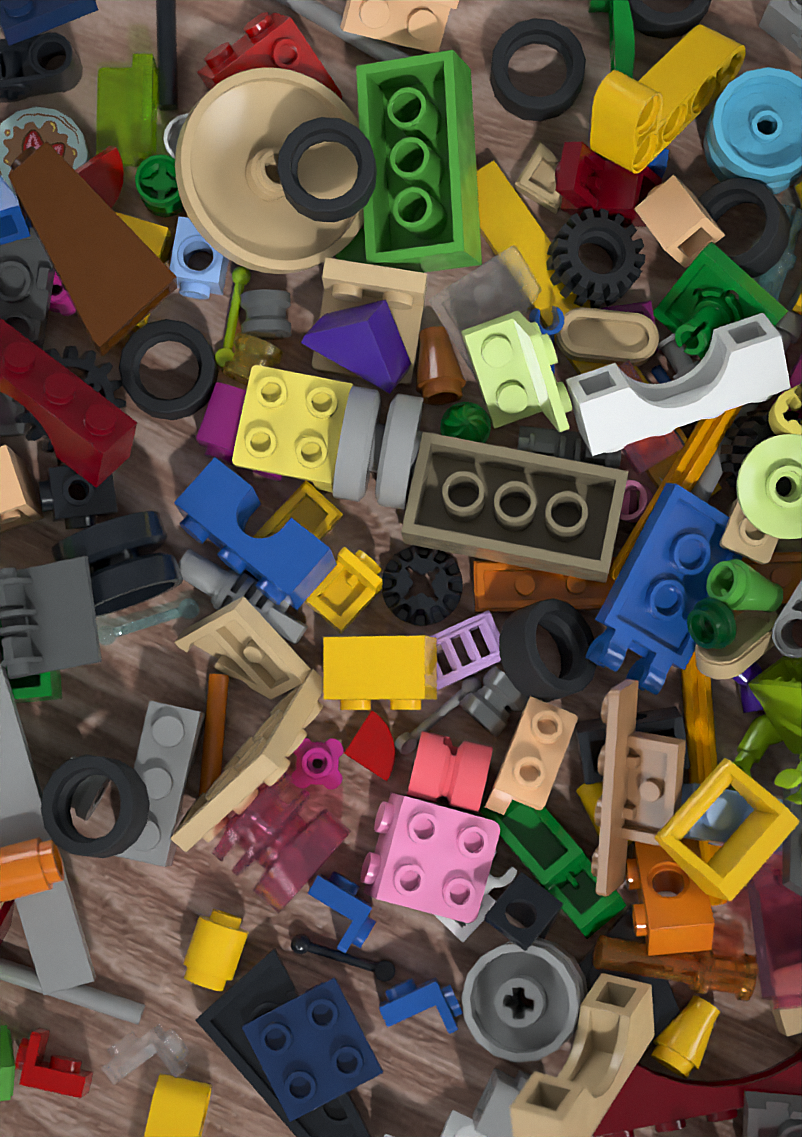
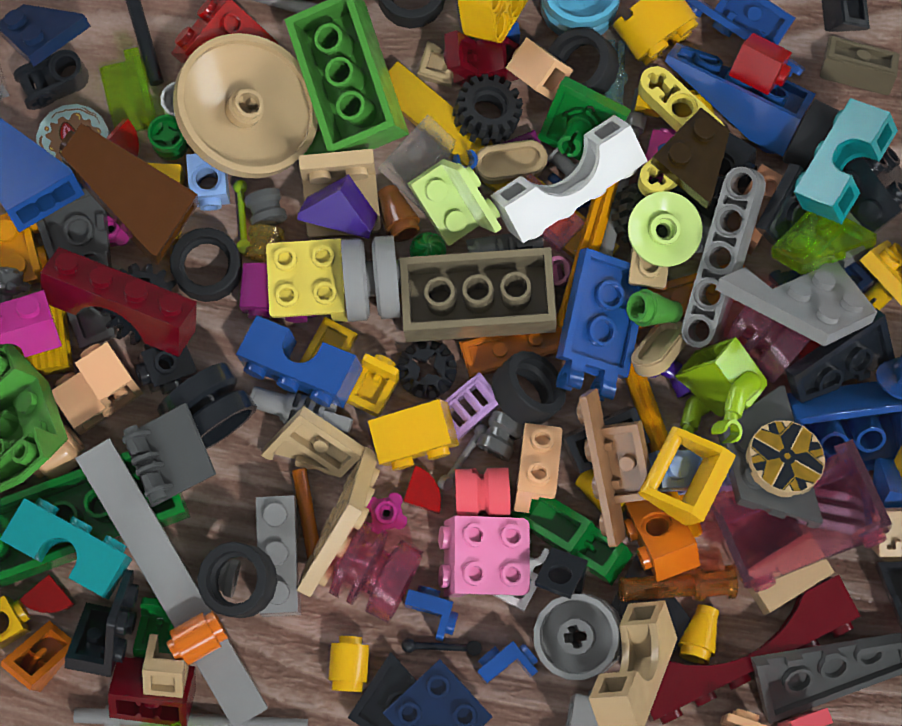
camera: 20 degrees left, 5 degrees down
(188, 609) = (264, 430): clear light blue hinge -> none
(315, 132) = (277, 67): black tyre -> none
(712, 624) = (638, 338): dark green plate -> none

